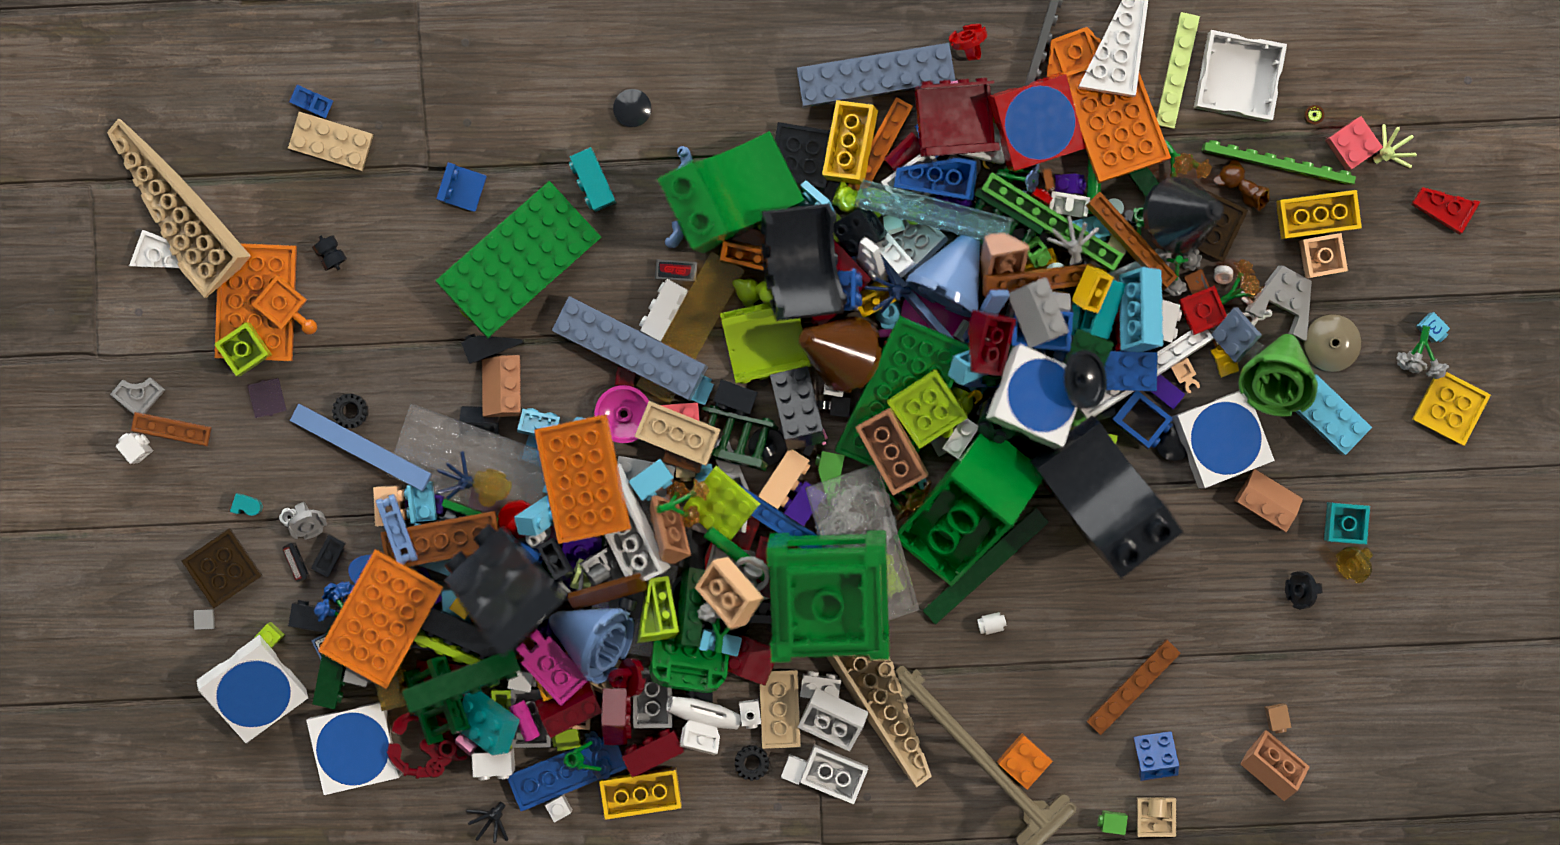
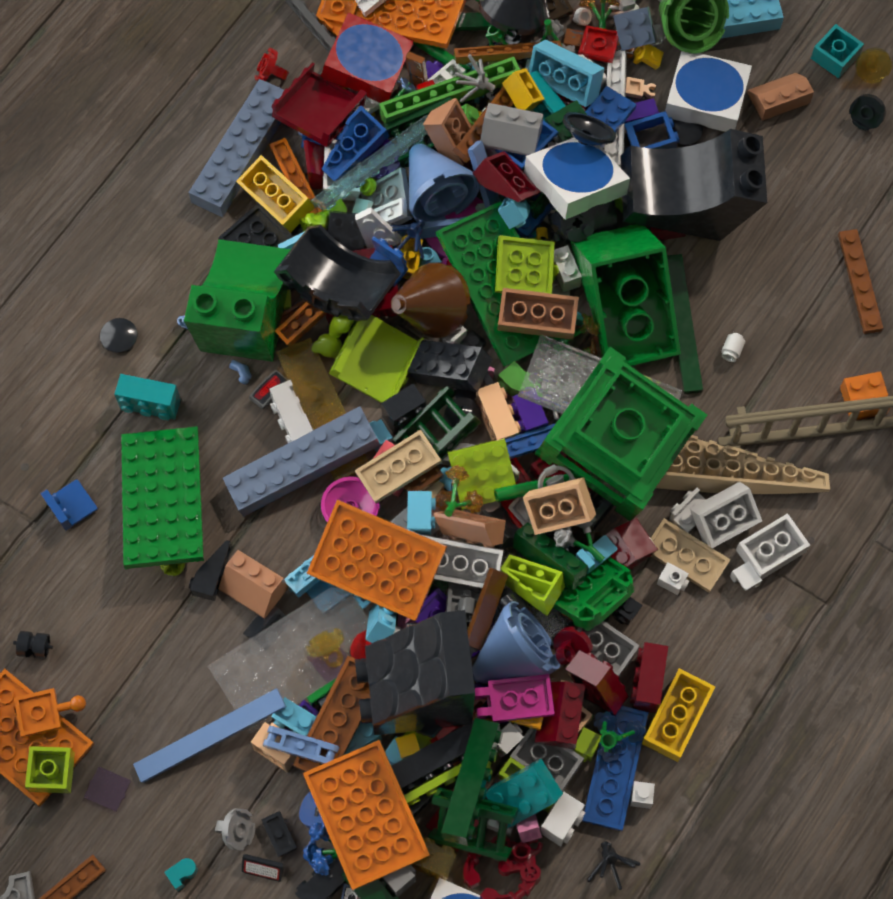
camera: 55 degrees left, 20 degrees down
(285, 512) = (214, 844): white plate -> none
(339, 415) = (167, 714): black tyre -> none
(464, 482) = (304, 667): dark blue plant -> none
(526, 724) = (553, 761): dark pink axle -> none
(625, 377) = (319, 486): dark red tile -> none
(702, 722) = (654, 617): white plate -> none
(751, 751) = (721, 598): black tyre -> none

